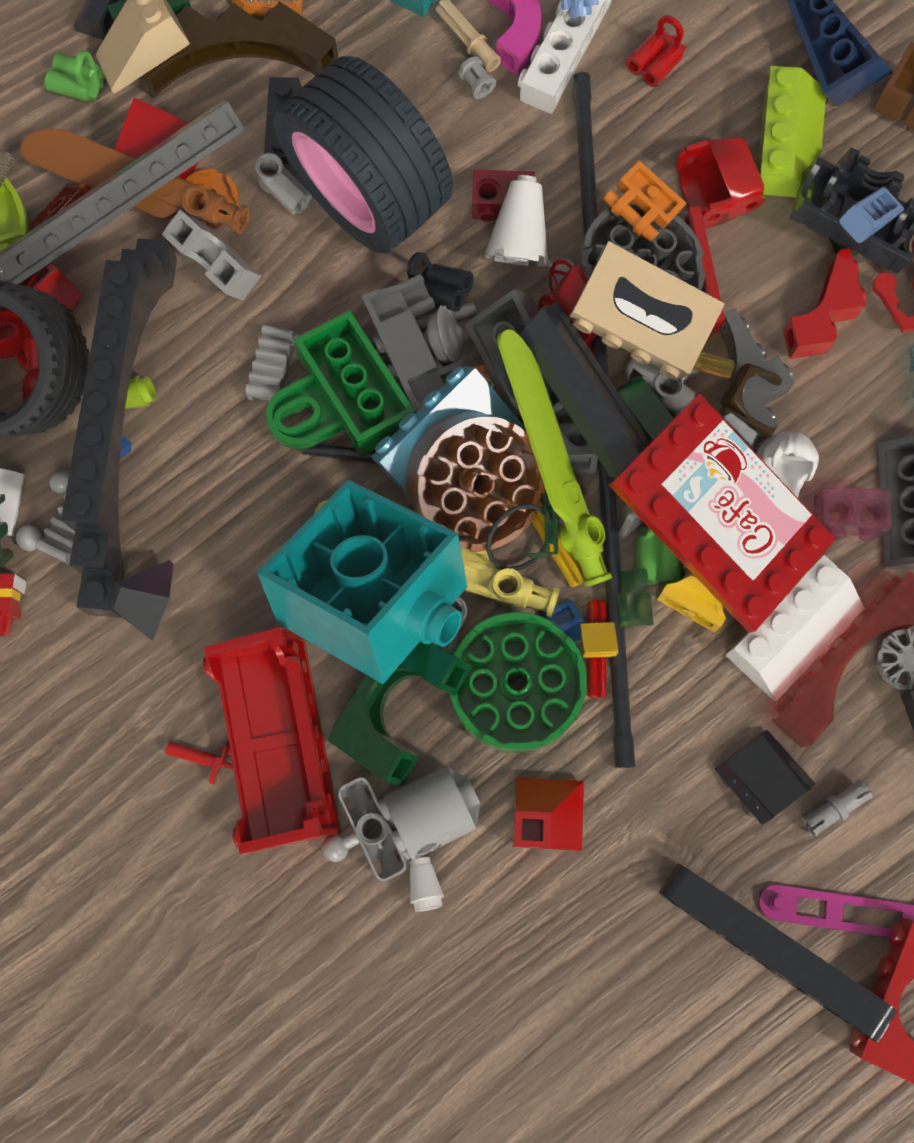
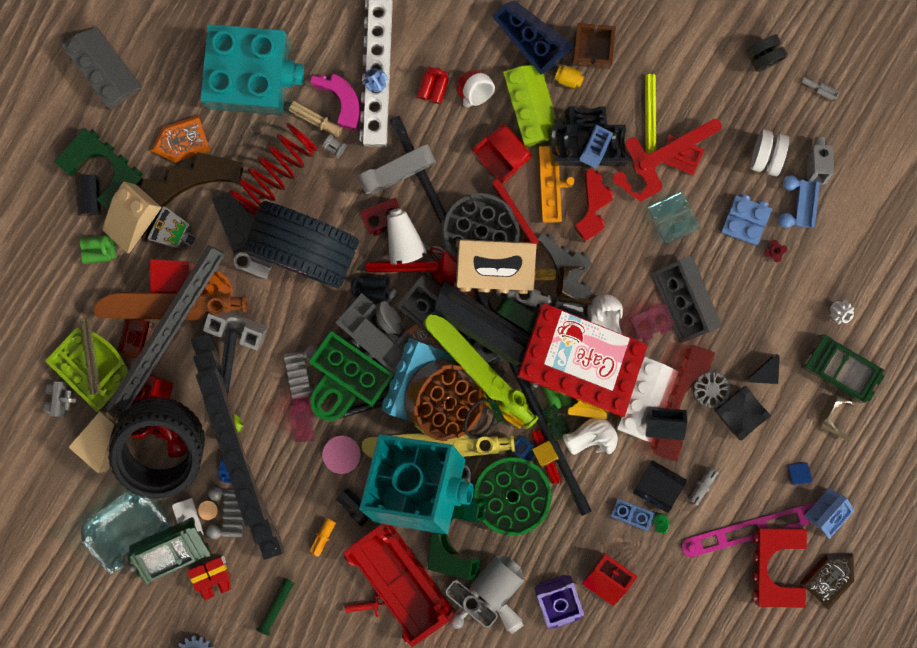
camera: 25 degrees left, 10 degrees up
(37, 502) = (208, 510): none -> light nougat tile
(60, 694) = (275, 607): none -> dark green pin
(144, 597) = (298, 538): black slope -> none
(170, 306) = (228, 357): none -> black axle
(187, 89) = (171, 230): none -> torso
(188, 618) = (322, 537): none -> light orange axle
(244, 429) = (302, 419): none -> clear pink slope
(257, 600) = (352, 505): none -> black piece
(279, 507) = (341, 454): none -> bright pink tile
(428, 13) = (304, 140): none -> red piece
(502, 272) = (414, 266): none -> red axle
(518, 893) = (559, 601): none -> dark purple slope
(548, 814) = (557, 555): red slope -> none
(552, 139) = (396, 170): none -> light grey beam
(619, 893) = (609, 579): none -> red slope
(650, 195) = (469, 193): orange plate -> none
(685, 641) = (592, 432): none -> white piece
(700, 804) = (632, 514): none -> medium blue slope
(718, 79) = (475, 87): none -> white piece
(743, 838) = (661, 523): none -> green piece
(773, 256) = (550, 187): none -> light orange plate
(779, 953) = (698, 573): black beam -> none
(820, 673) = (666, 423): none -> black brick
(863, 120) = (569, 77): none -> yellow brick

